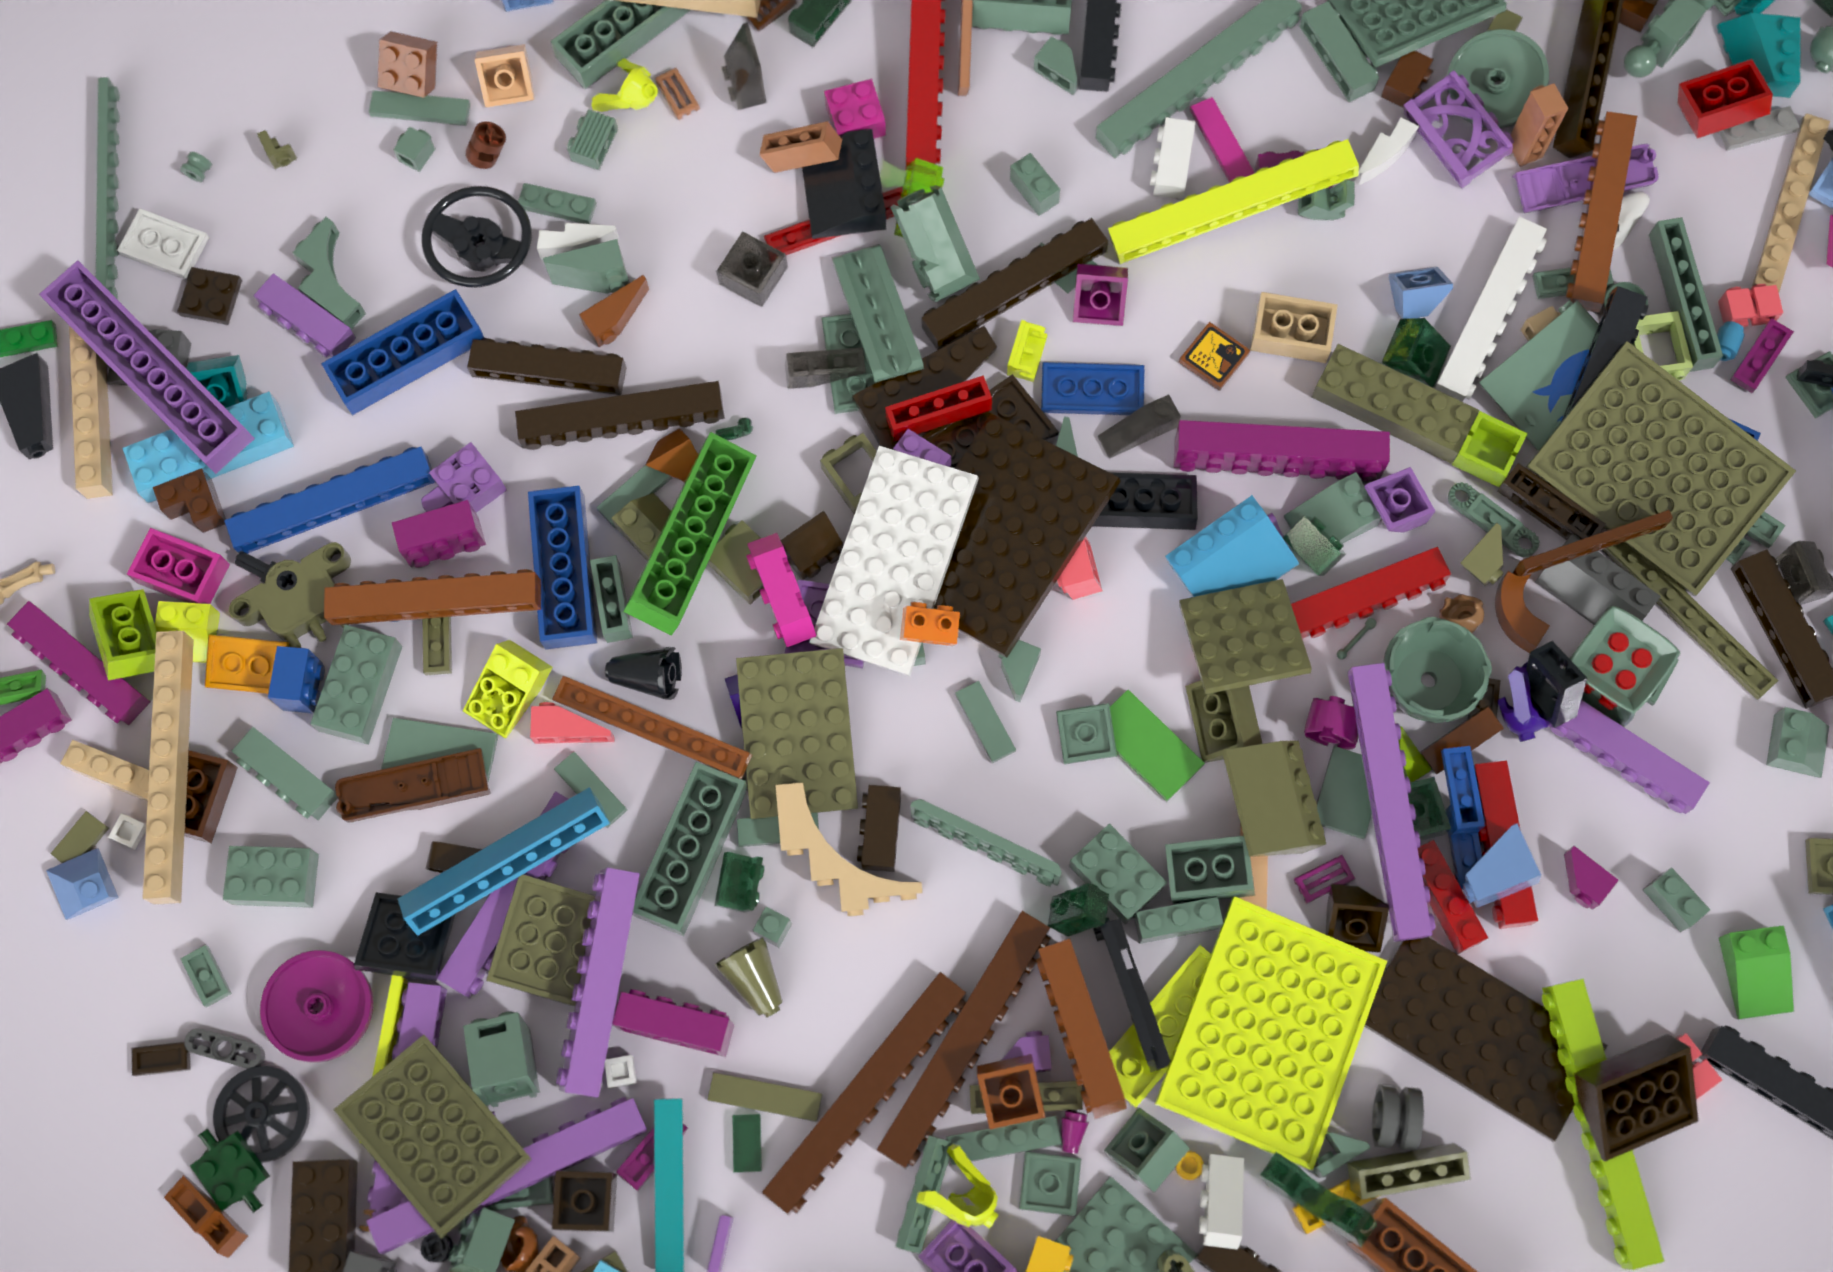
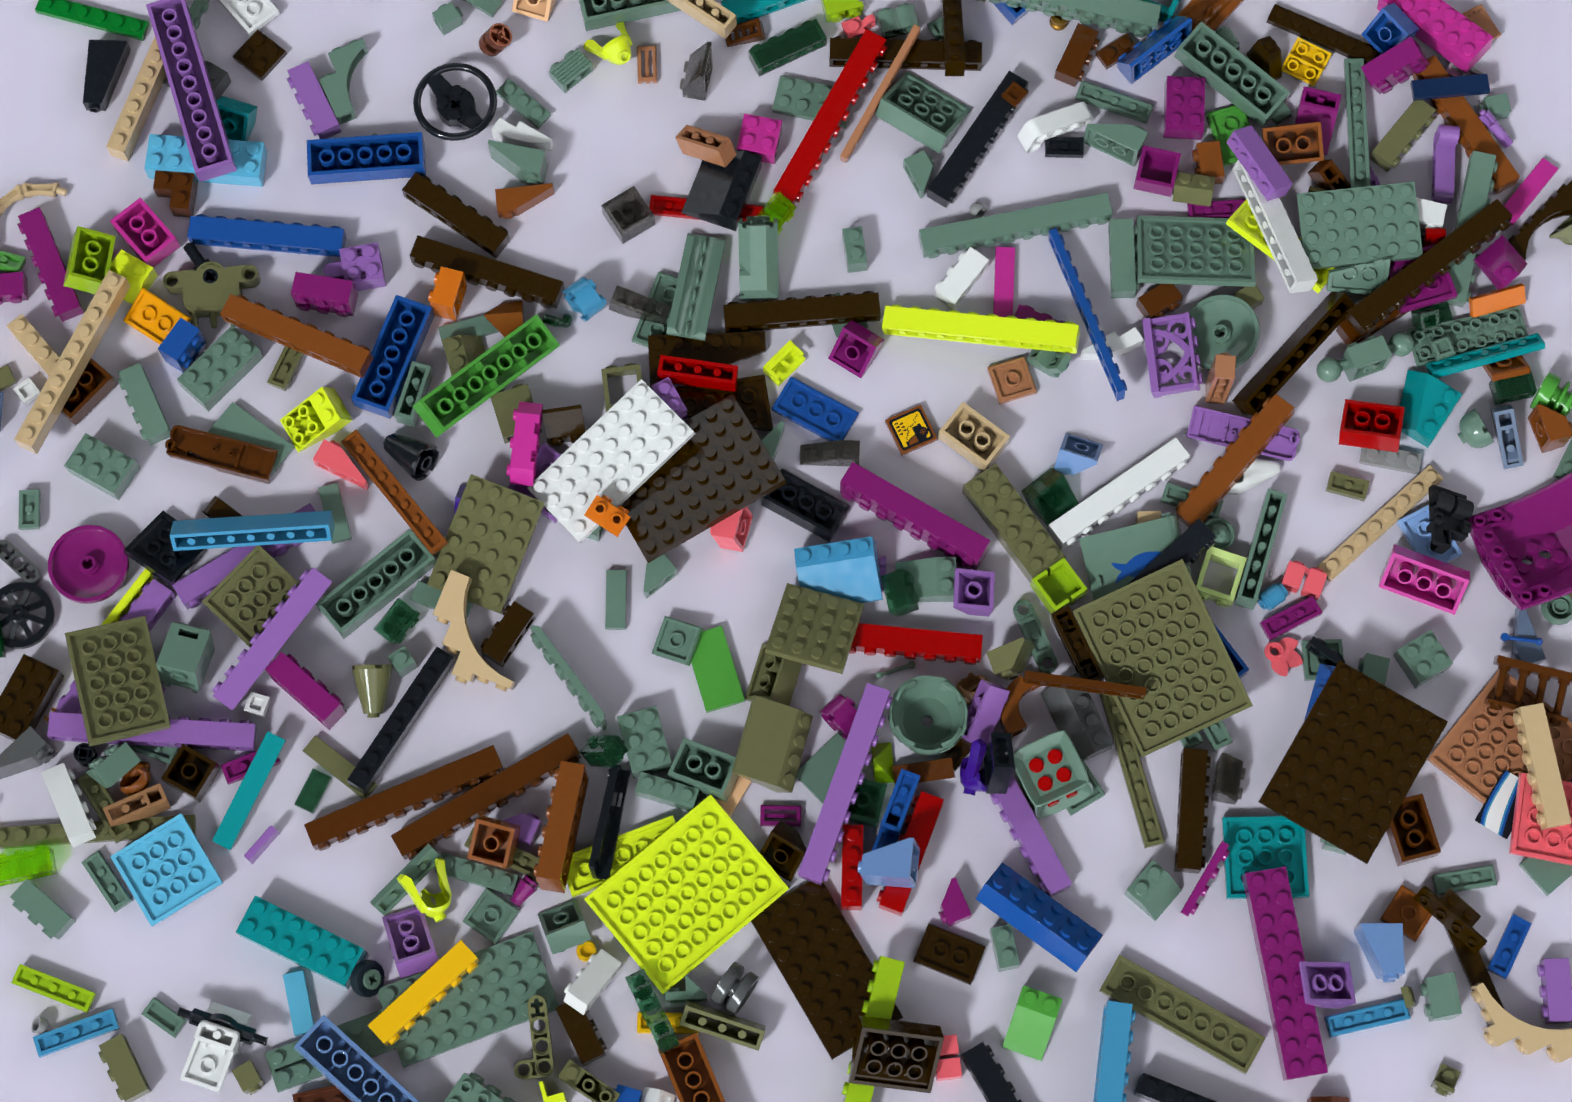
camera: 25 degrees right, 0 degrees up
(588, 460) = (448, 293): none -> orange brick
(754, 388) = (584, 298): none -> dark azure brick
(811, 1001) = (401, 721): none -> black brick
(877, 47) = (801, 98): none -> sand green plate
(1146, 75) = (977, 210): none -> light grey hinge
(1294, 245) = (1011, 380): none -> nougat tile
(1341, 128) = (1089, 319): none -> blue plate
(1496, 629) = (985, 710): none -> medium lavender brick
(1614, 941) = (949, 954): none -> dark brown tile
(1698, 842) = (1039, 917): none -> blue brick
(1733, 179) = (1347, 486): none -> olive plate
(1780, 402) = (1286, 655): none -> coral plate

